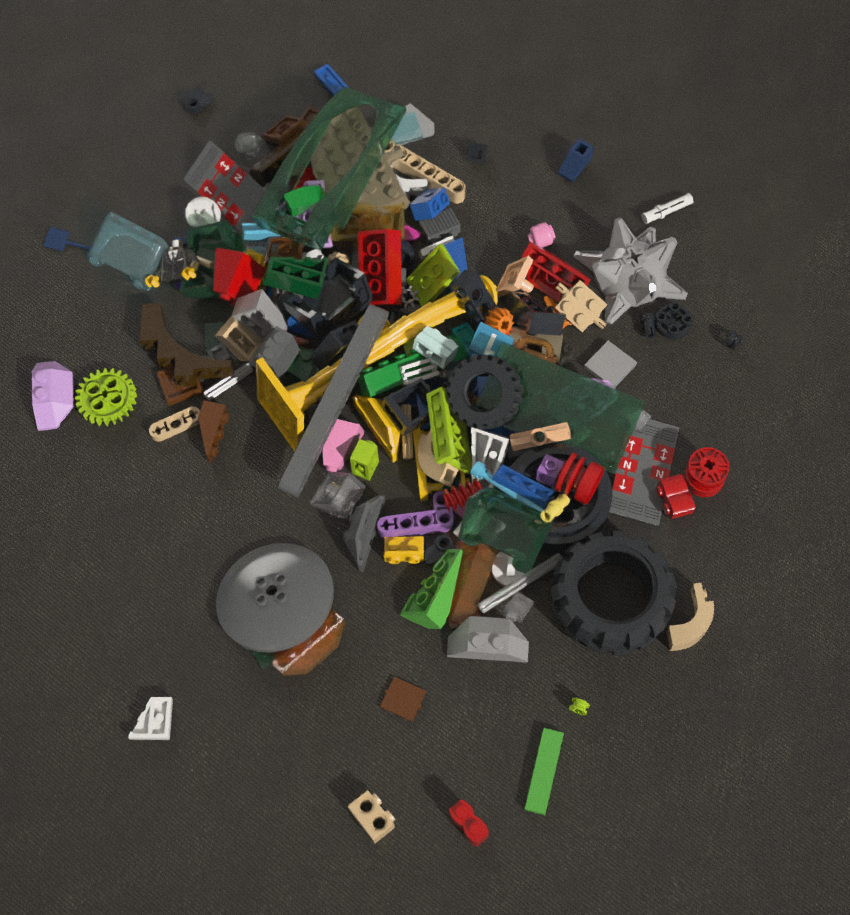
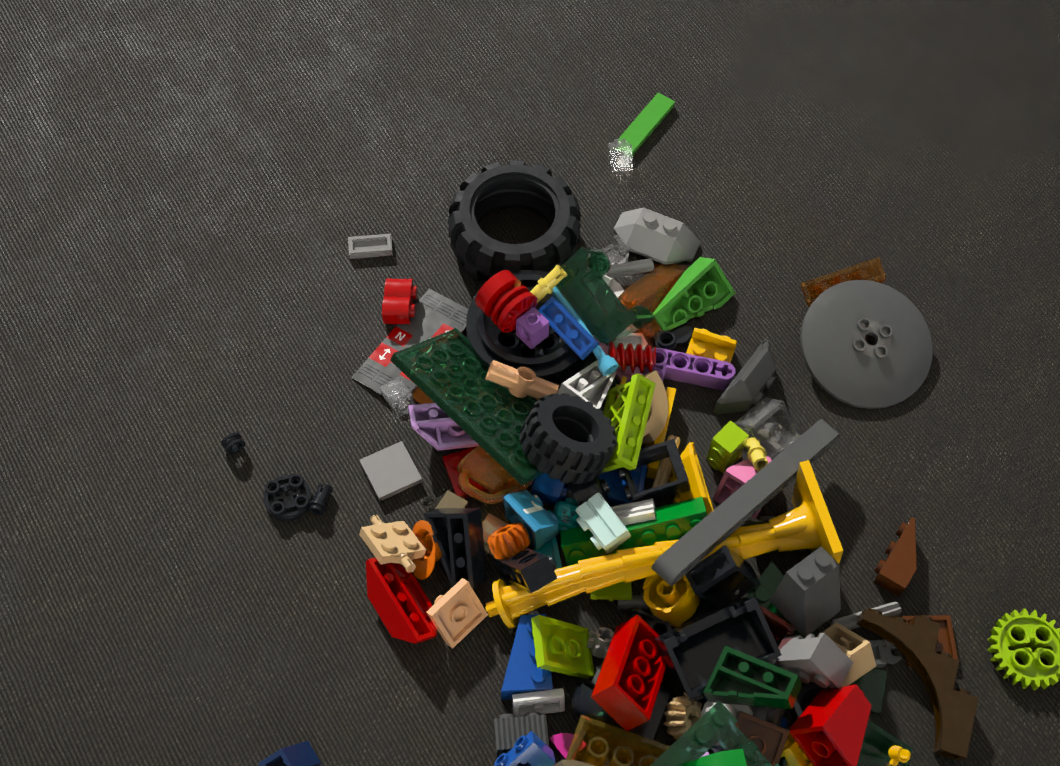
camera: 165 degrees left, 5 degrees down
(154, 721) = (1014, 278): white wing -> none
(173, 431) = (951, 578): tan beam -> none
(339, 452) = (756, 454): none -> light yellow pin
(367, 819) = (818, 137): tan brick -> none
(403, 699) = (756, 222): reddish brown piece -> none
(472, 826) = (731, 104): red brick -> none
(541, 234) = (391, 667): bright pink head -> none
(552, 718) = (621, 155): none -> clear bracket
(579, 706) = (590, 157): lime bush -> none
(632, 270) = (301, 576): light grey piece -> none
(650, 215) = (206, 649): white pin -> none
(690, 633) = (441, 183): tan arch -> none
(706, 472) = (354, 307): red wheel -> none
(727, 544) = (370, 246): none -> light grey tile

